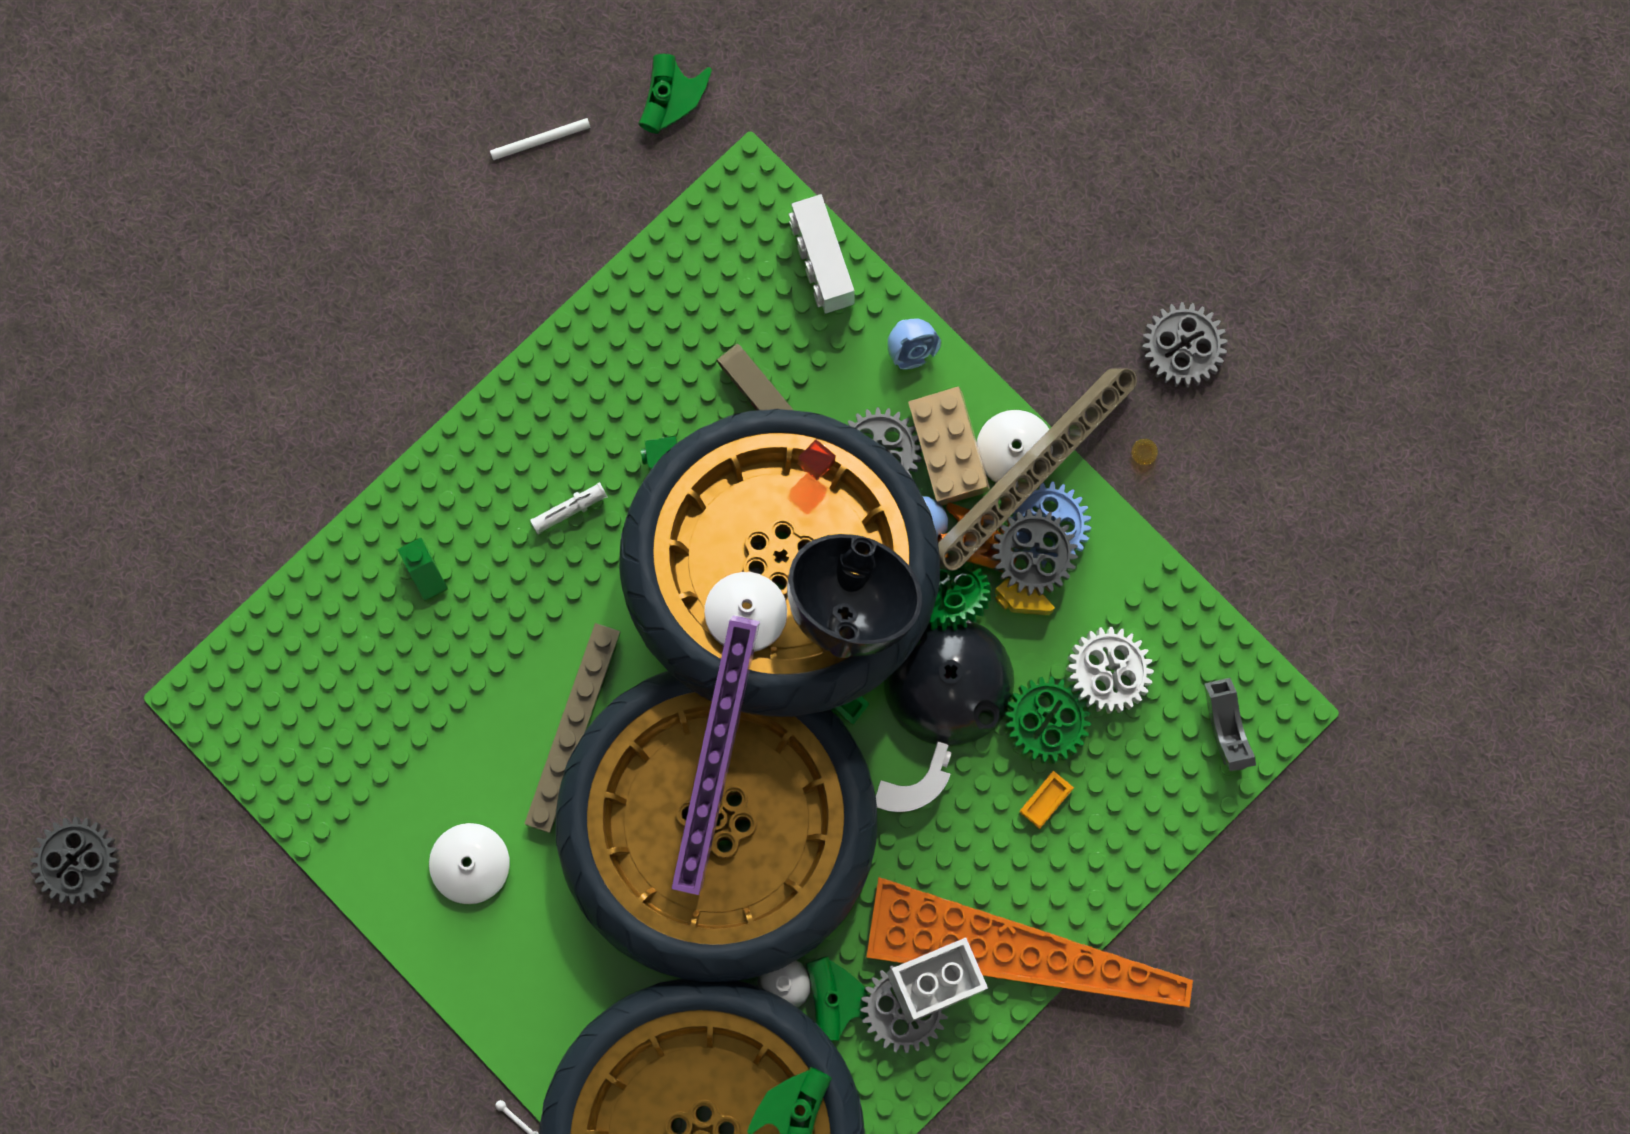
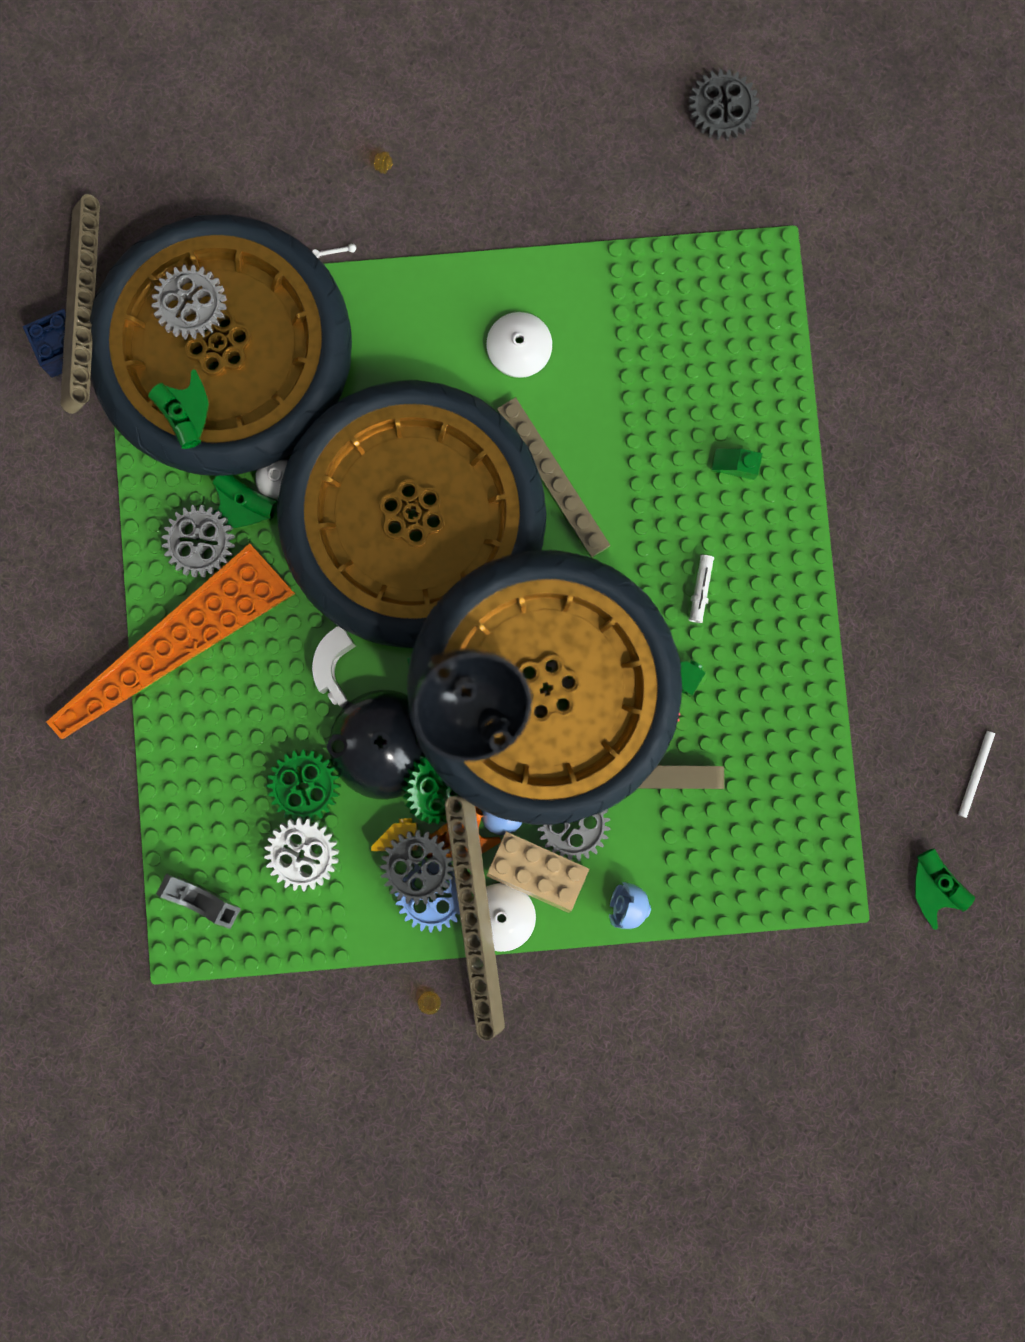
camera: 120 degrees right, 5 degrees up
(715, 754) = (445, 533): medium lavender brick -> none
(742, 587) = (506, 626): white dish -> none
(816, 459) = (591, 765): clear red piece -> none
(823, 255) = (746, 898): white brick -> none
(937, 980) = (193, 571): white brick -> none
(1046, 800) = (254, 742): light orange tile -> none
(1198, 363) = (458, 1090): light grey gear -> none

